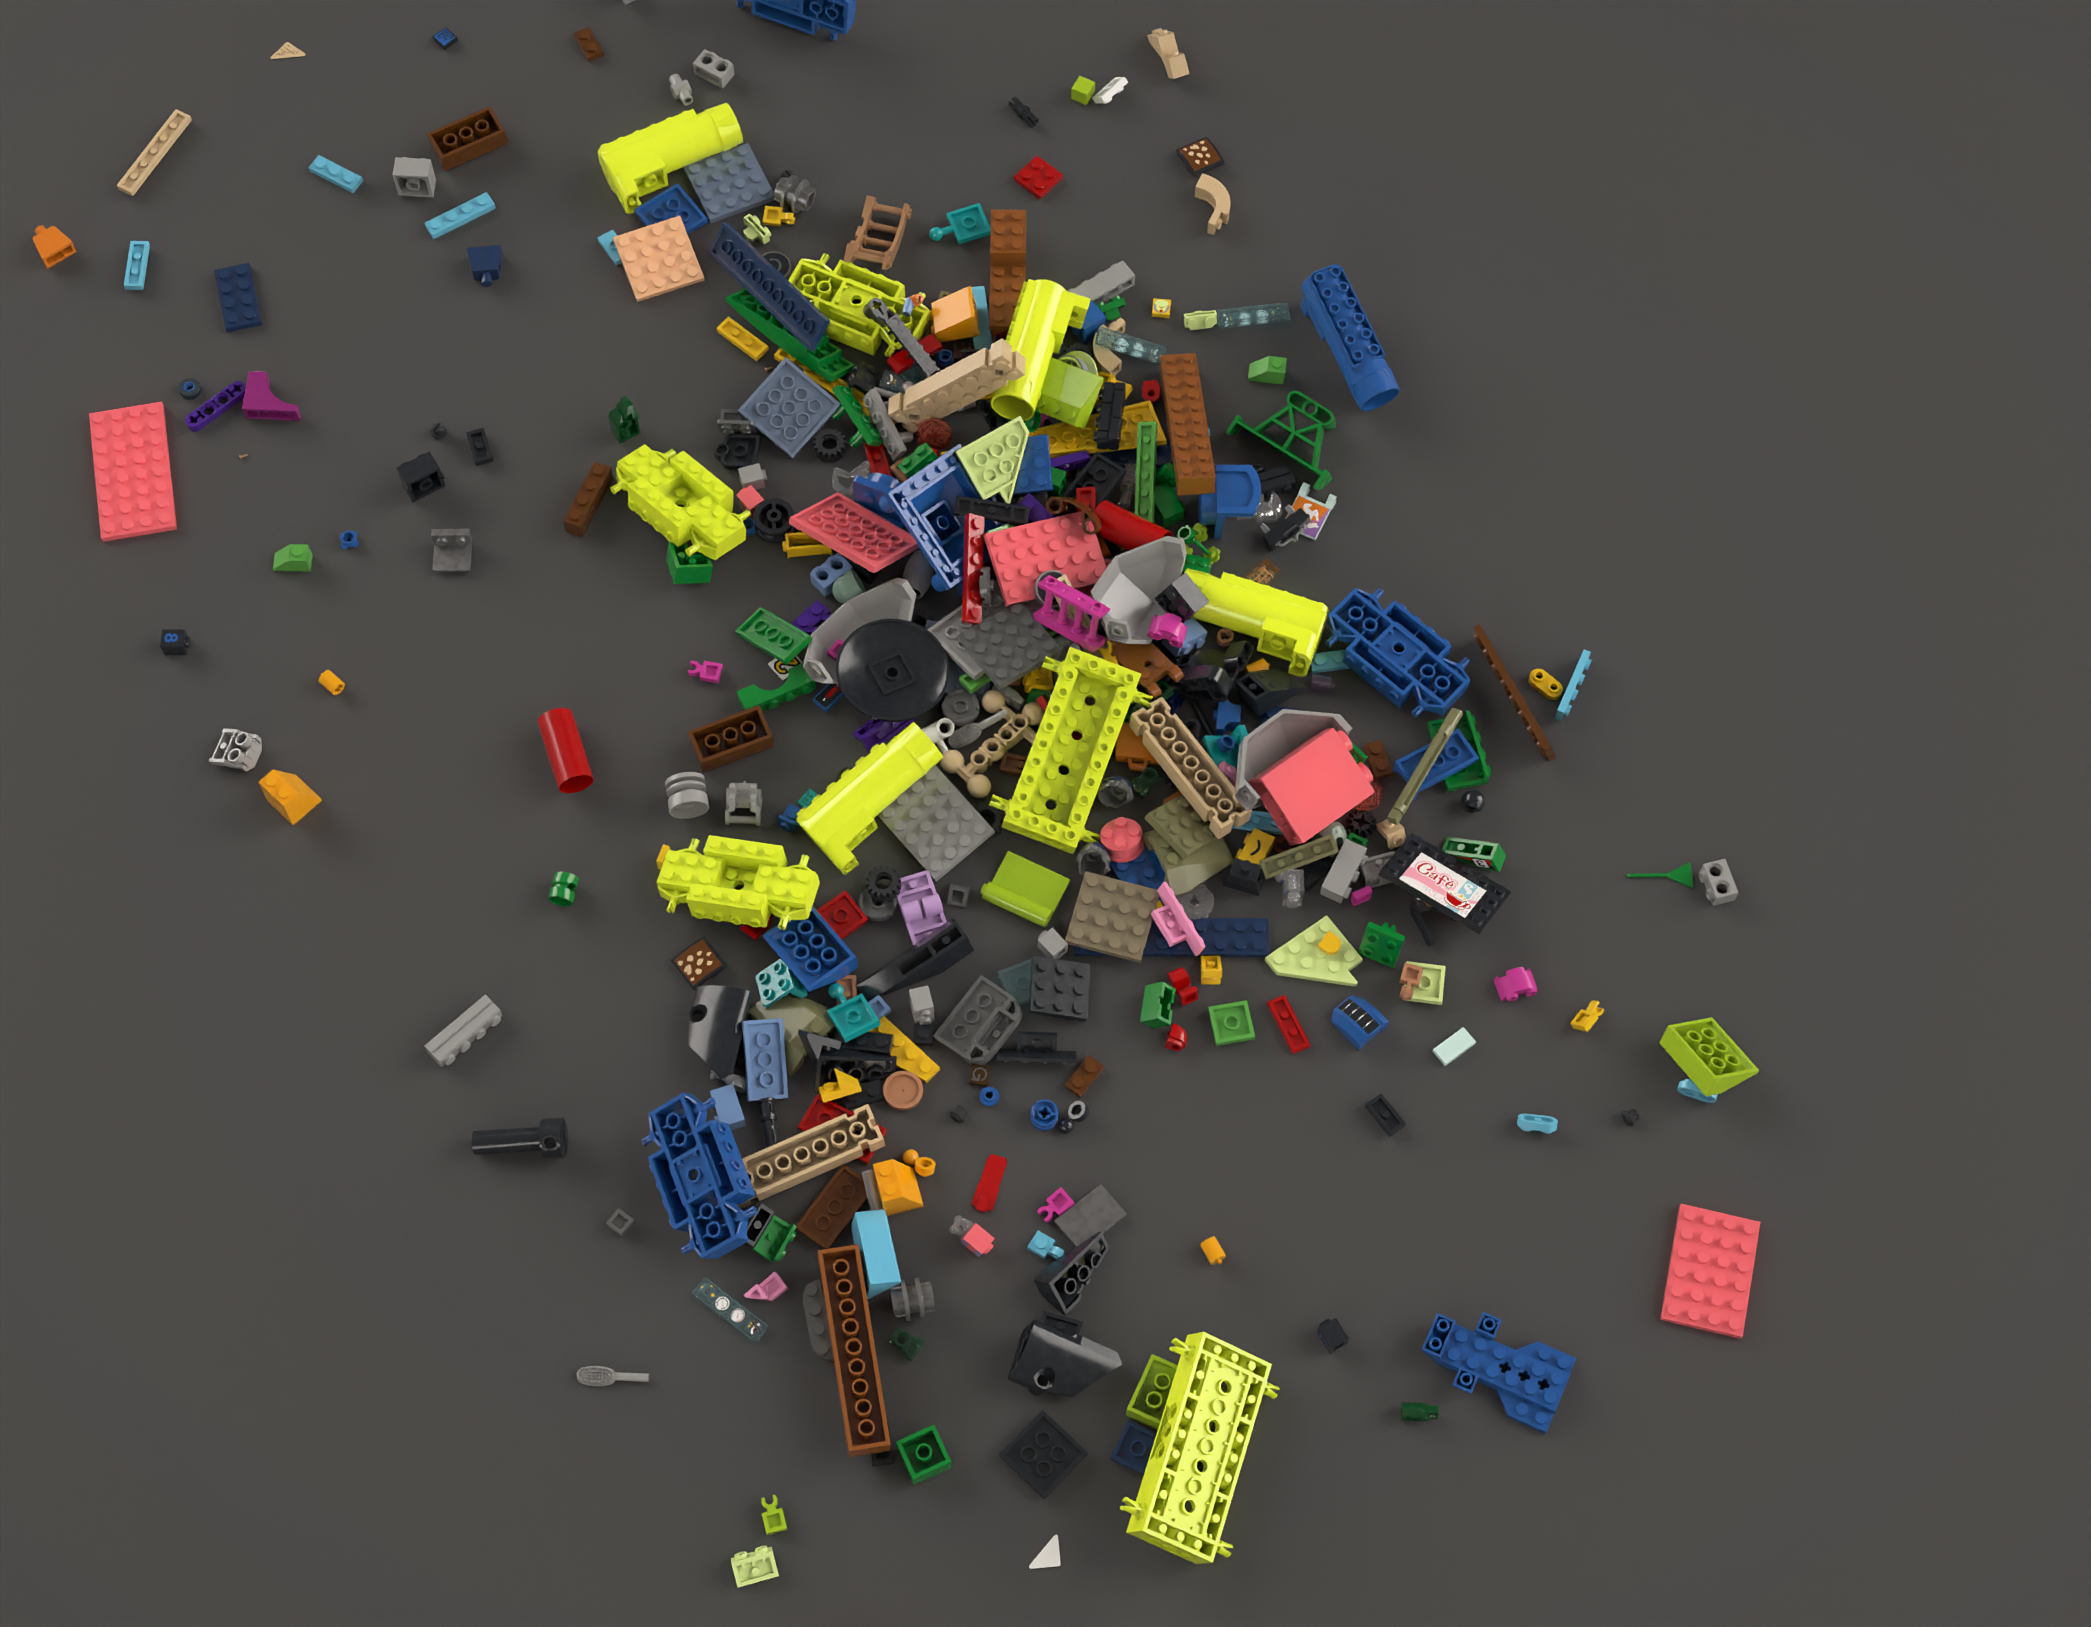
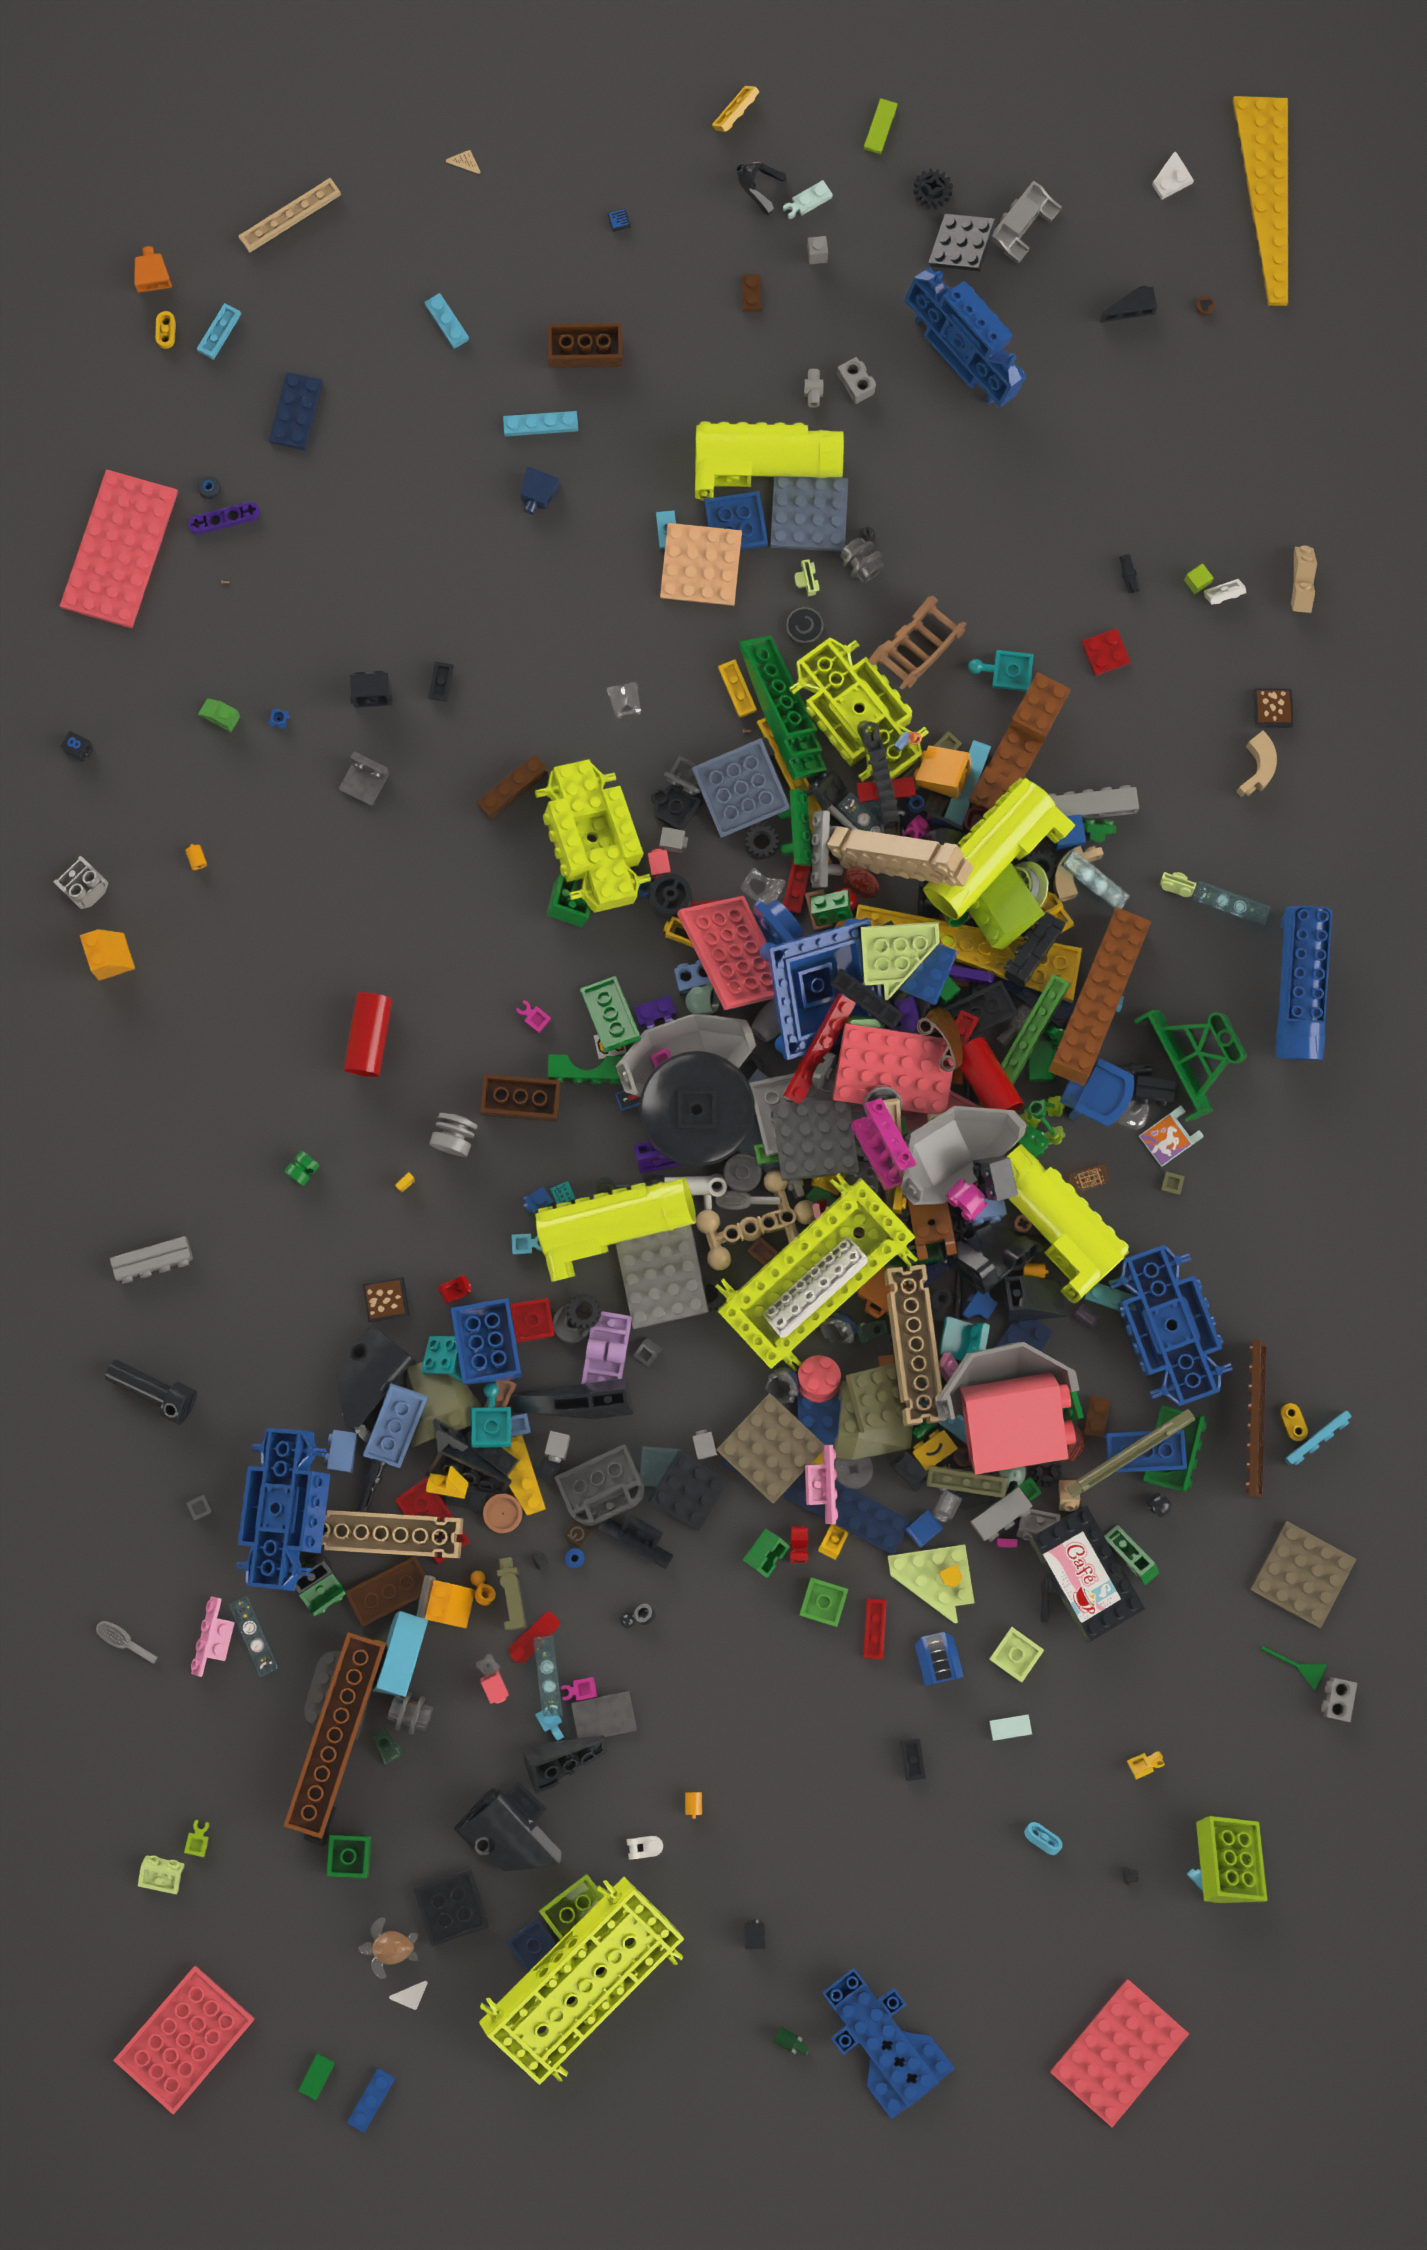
camera: 25 degrees right, 15 degrees up
(88, 285) = (165, 331): none -> yellow plate
(262, 404) = (265, 536): magenta arch -> none
(414, 177) = (515, 364): light grey brick -> none
(438, 431) = (412, 646): black piece -> none
(624, 420) = (582, 724): dark green piece -> none
(647, 387) = (622, 696): none -> clear piece
(693, 1329) = (214, 1637): none -> bright pink bracket
(710, 882) = (434, 1226): neon yellow piece -> none
(743, 796) = (503, 1160): light grey piece -> none
(769, 286) = (785, 652): dark blue plate -> none
(769, 1289) = (295, 1634): bright pink slope -> none
(774, 216) = (833, 571): yellow plate -> none
(794, 856) = (523, 1244): none -> medium azure plate
(946, 1146) = (513, 1594): none -> olive hips
(1004, 1520) = (388, 1947): none -> animal
(1021, 1207) = (547, 1676): none -> clear light blue tile
(1026, 889) = (709, 1379): lime door -> none
(1050, 1120) = (613, 1609): blue wheel -> none
(1077, 759) = (815, 1287): none -> white plate
(1084, 1076) = (668, 1583): reddish brown plate -> none
(1151, 391) = (1089, 938): red piece -> none
(1161, 308) = (1148, 852): tile -> none
(1176, 1038) = (767, 1590): red piece -> none
(1196, 1307) = (651, 1844): none -> white plate
(1225, 744) = (966, 1332): blue plate -> none
(1234, 843) = (920, 1432): none -> green pin
(1268, 370) = (1212, 970): bright green slope -> none
(1283, 920) = (924, 1528): none -> blue piece
(1286, 529) = (1138, 1144): black piece -> none
(1332, 548) = (1172, 1183): none -> olive tile
(1381, 944) = (997, 1600): green plate -> none
(1410, 977) = (1006, 1646): nougat plate -> none
(1515, 983) = (1099, 1698): dark pink cylinder -> none
(1626, 800) = (1303, 1574): none -> dark tan plate

